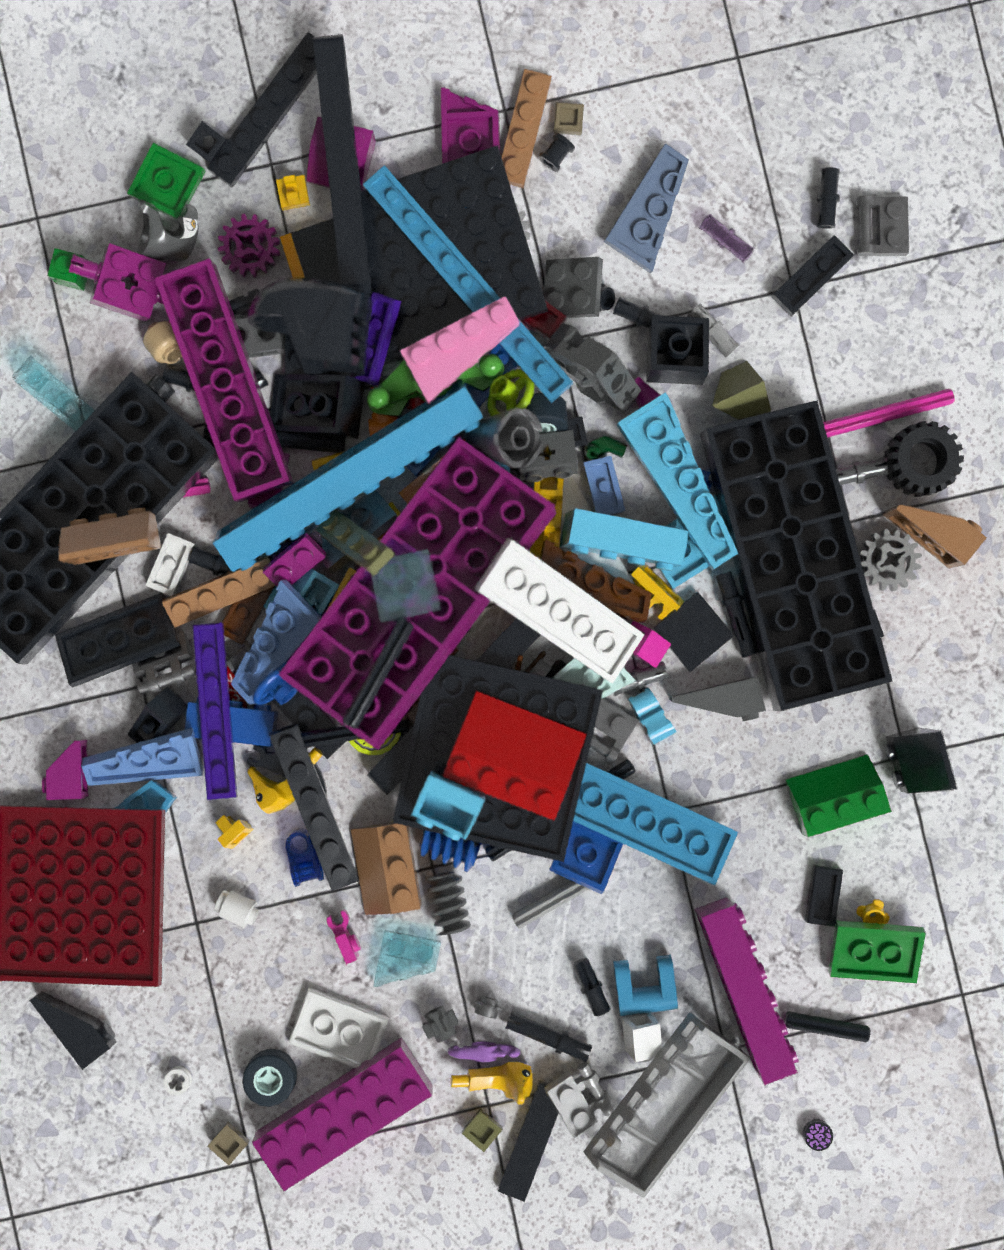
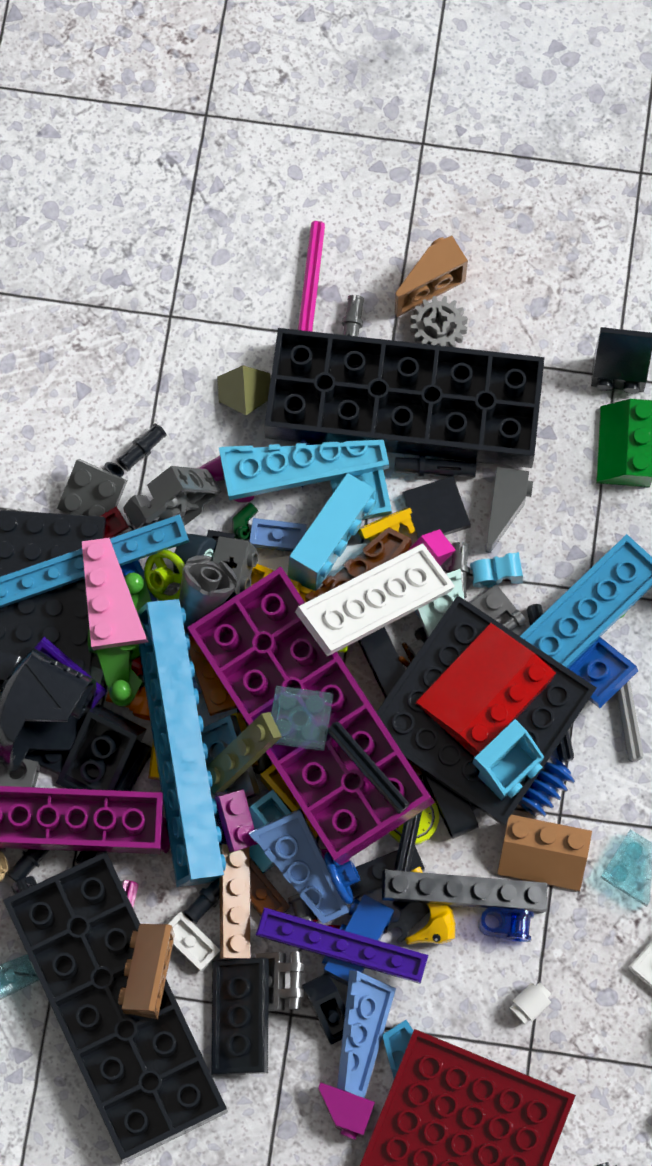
camera: 65 degrees left, 15 degrees down
(232, 831) = (458, 978): yellow tile -> none
(347, 943) = (599, 914): dark pink plate -> none
(448, 903) = (596, 808): dark grey piece -> none
(644, 219) = (55, 412): sand blue wing -> none
(678, 350) = (185, 427): black slope -> none
(717, 333) = (179, 393): light grey pin -> none
(727, 238) = (104, 352): clear purple pin -> none
(812, 275) = (167, 295): black plate -> none
(828, 197) = (106, 258): black pin -> none
(891, 225) = (151, 217): flat silver plate -> none
(946, 455) = (366, 245): black tyre -> none

